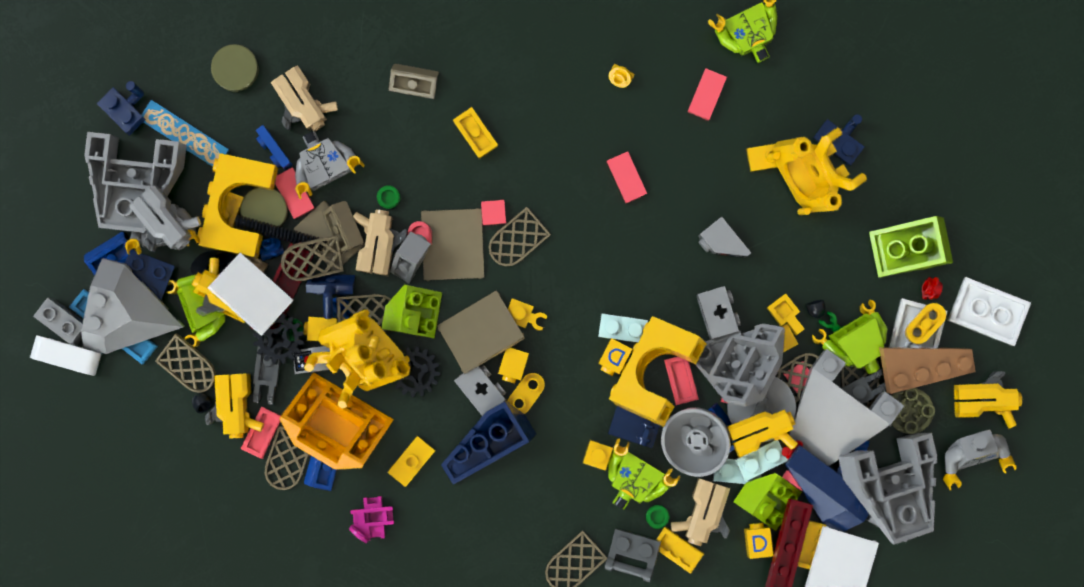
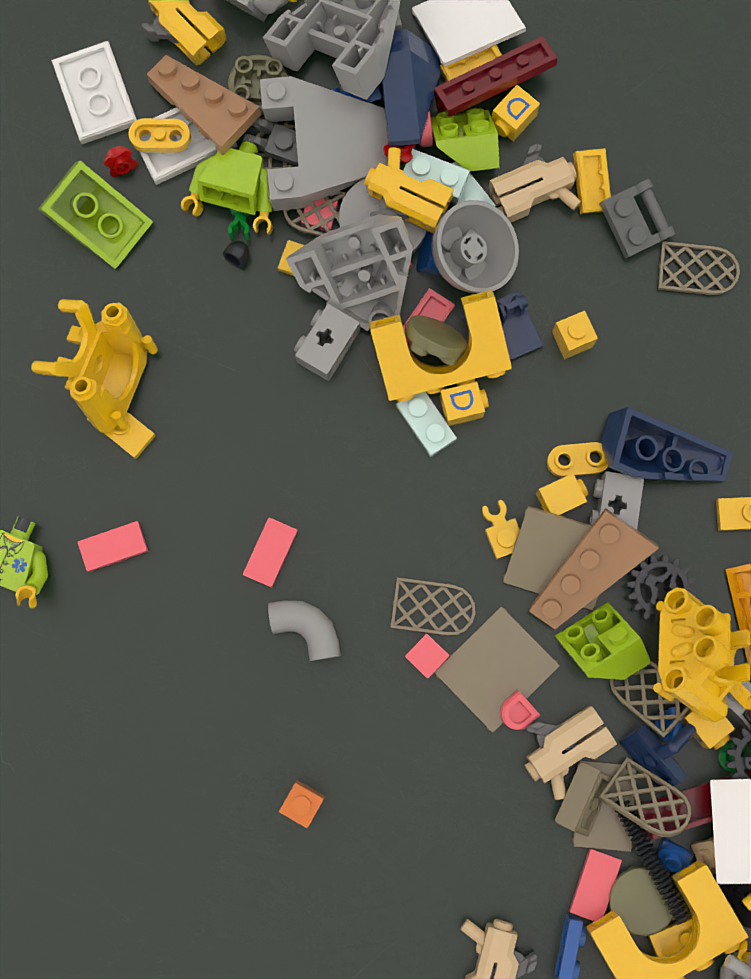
camera: 130 degrees left, 5 degrees down
(323, 163) = (538, 882): light grey torso -> none
(388, 197) = (509, 780): green tile -> none
(409, 256) = (551, 699): light grey slope -> none
(413, 81) = (364, 866): dark tan slope -> none
(460, 345) = (595, 564): none -> medium nougat wing
(475, 75) = (302, 804): none -> orange brick
(475, 133) = (362, 749): yellow plate -> none
(567, 164) = (308, 622): none -> light grey cylinder
(620, 76) = (170, 651): yellow plate -> none
(636, 478) = (561, 277): lime torso -> none
(657, 516) = (578, 229): green tile -> none
(664, 371) = (435, 338): none -> olive tile
(722, 240) = (250, 401): light grey slope -> none
(784, 312) = (268, 279): yellow plate -> none
(845, 145) = (48, 389): dark blue plate -> none

